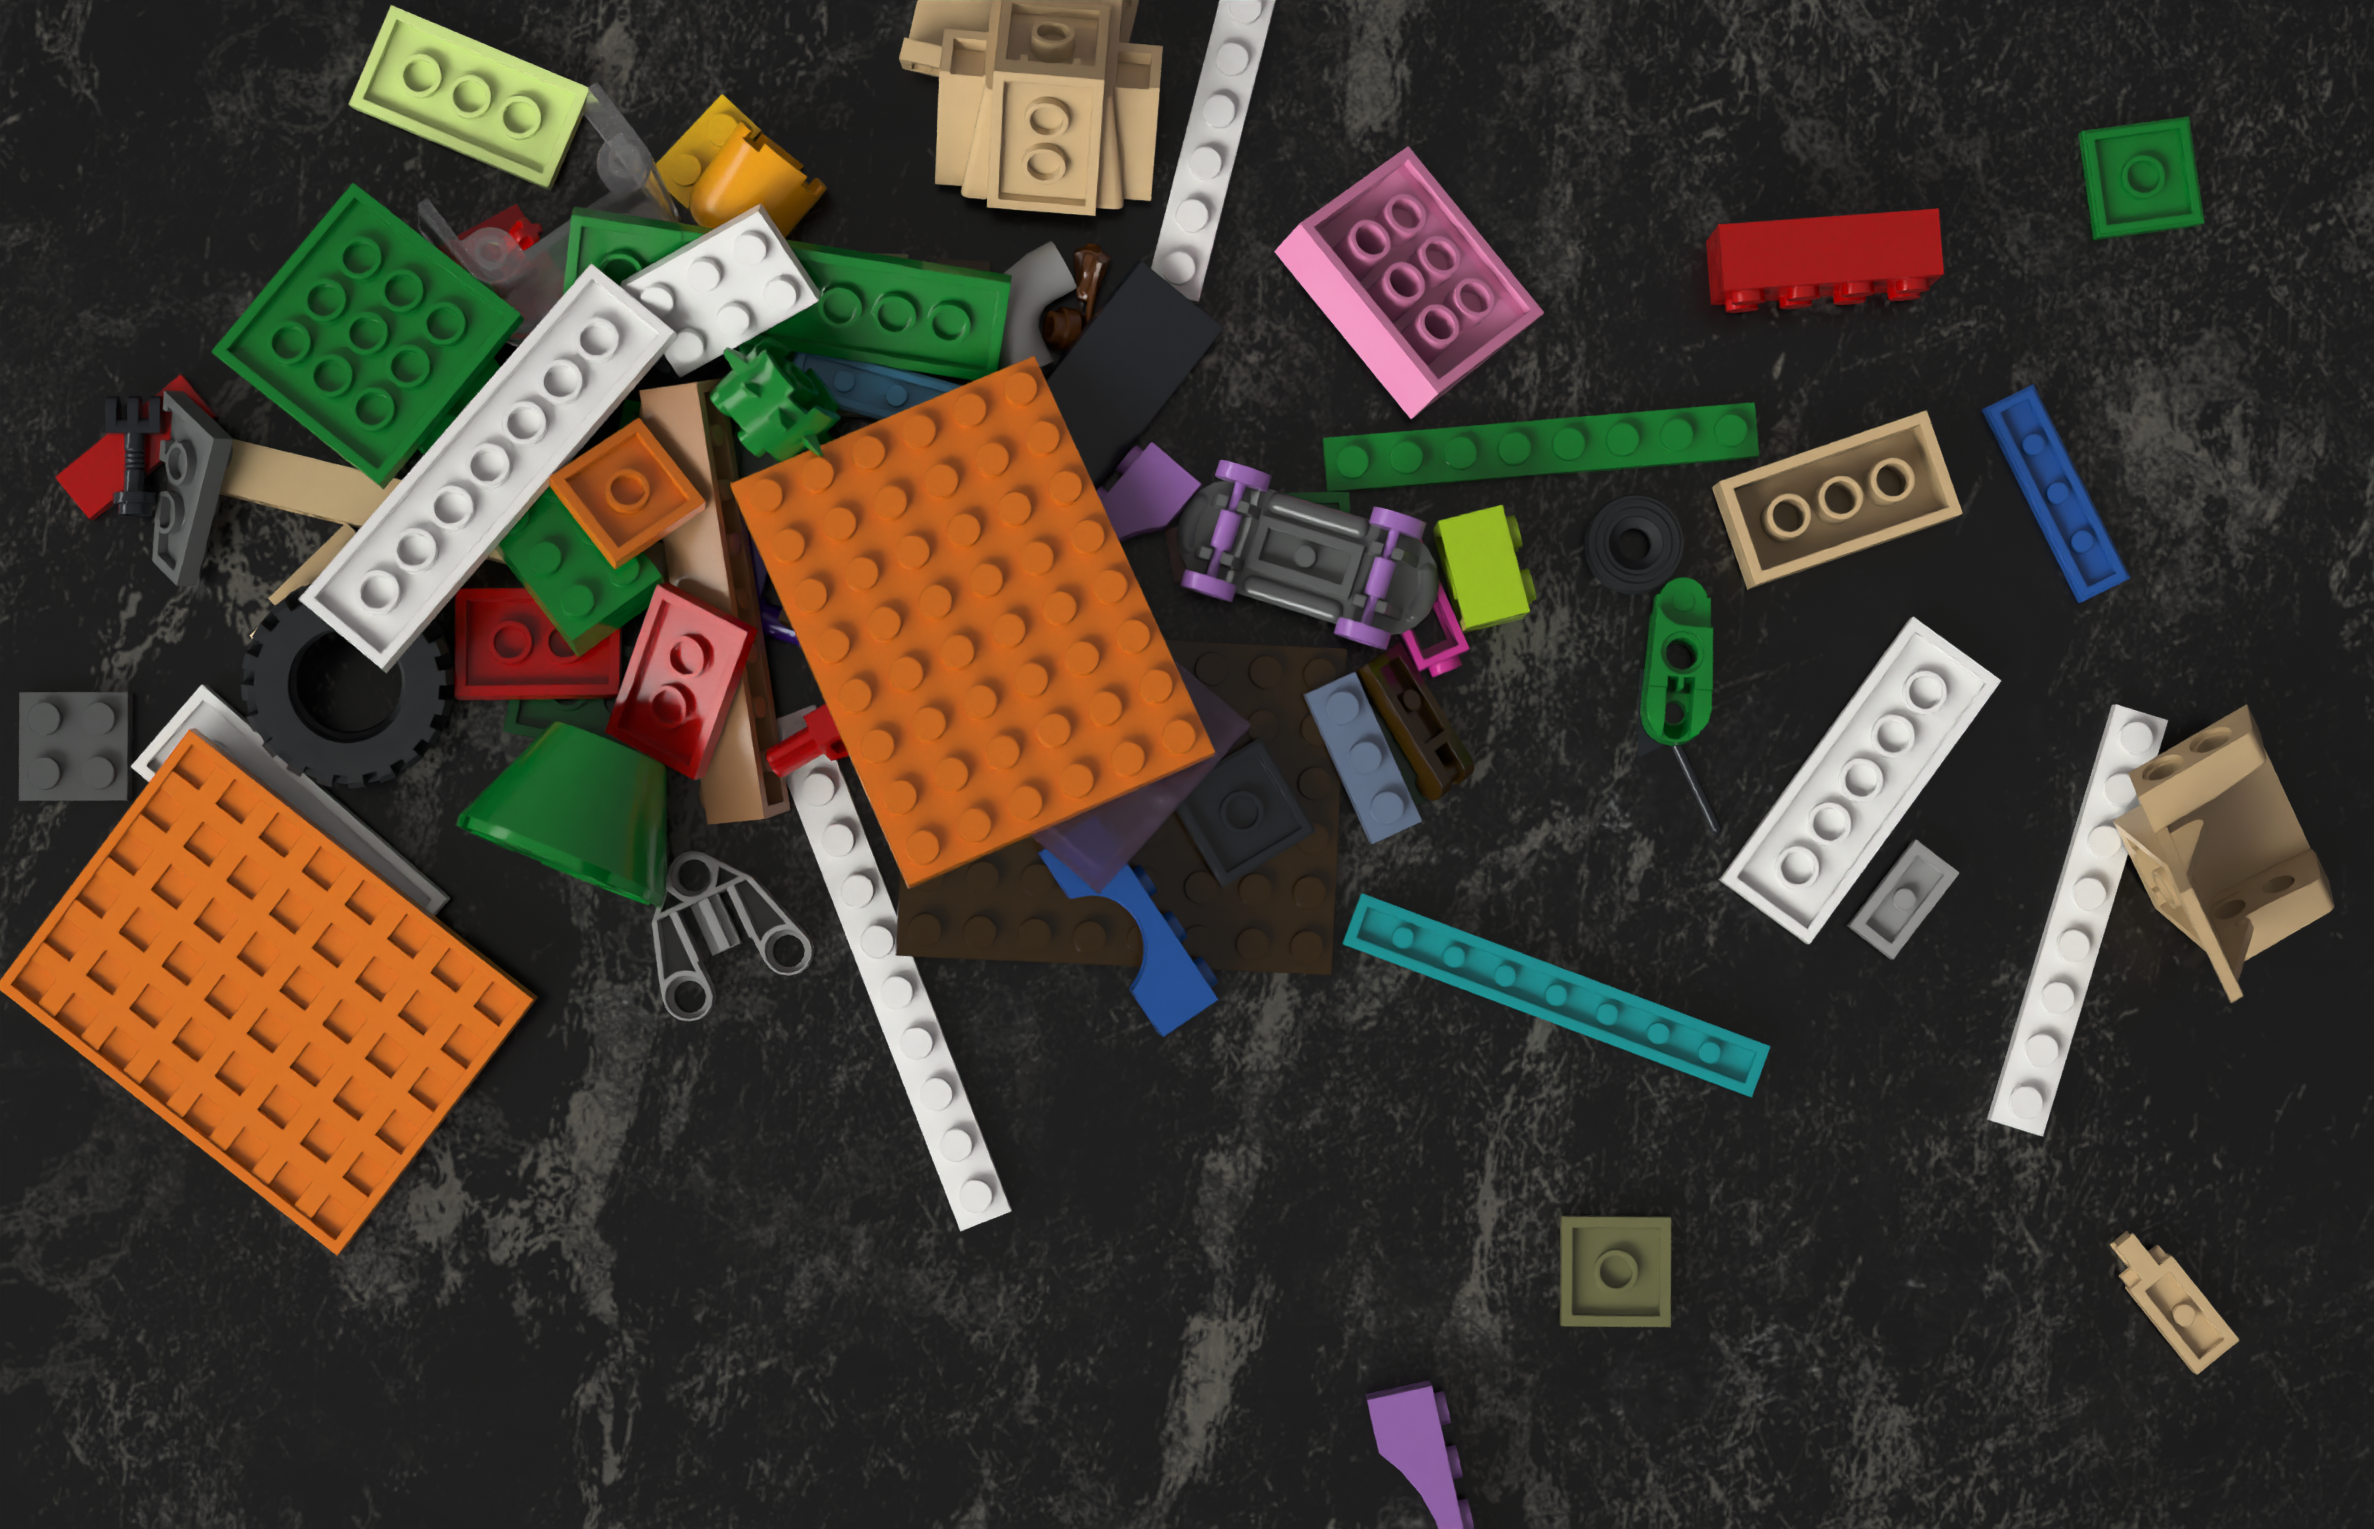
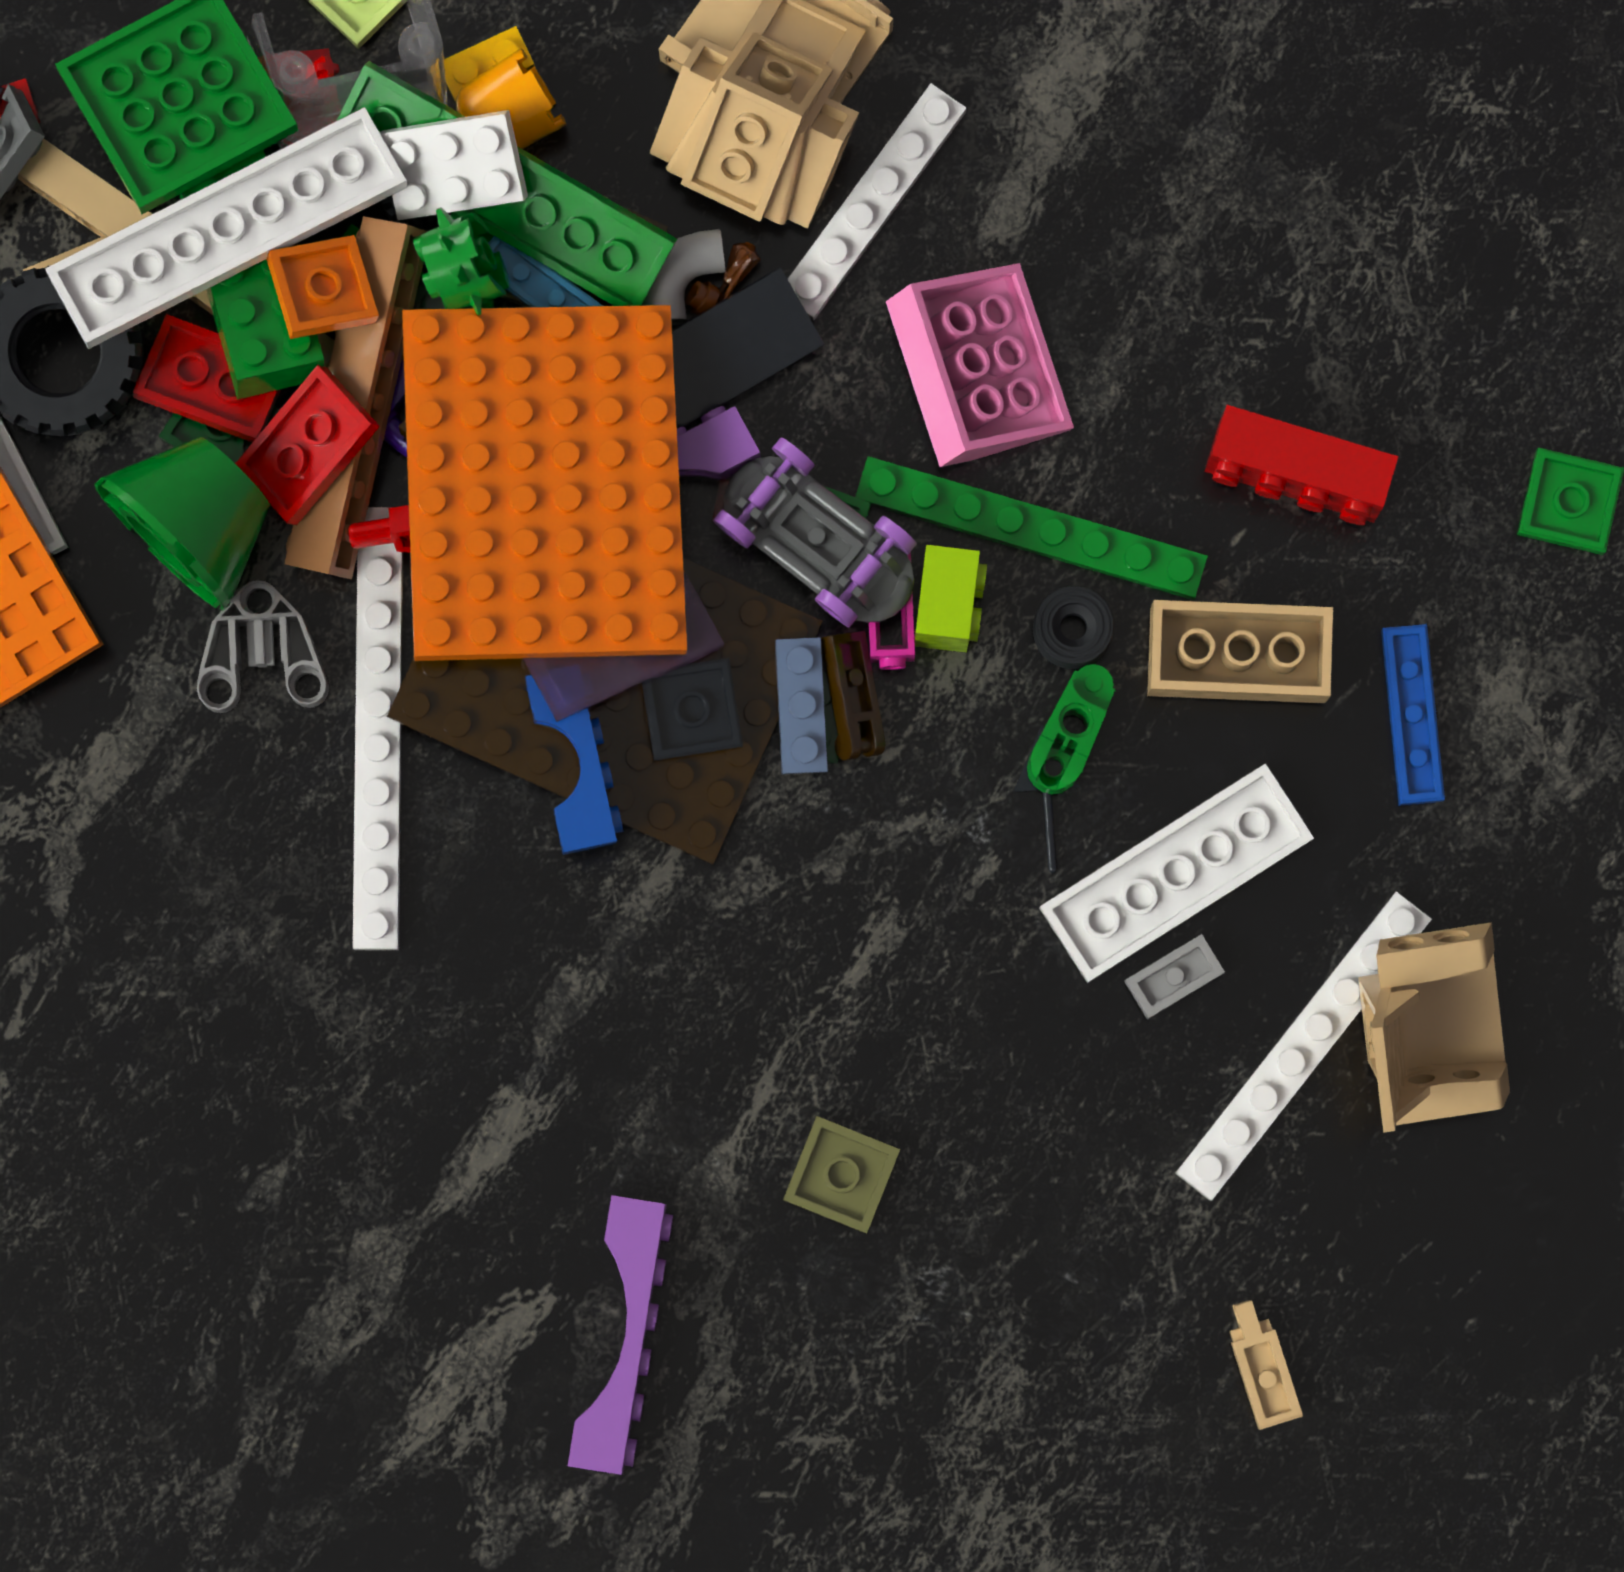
camera: 20 degrees right, 5 degrees down
(1556, 995) = (879, 946): teal plate -> none

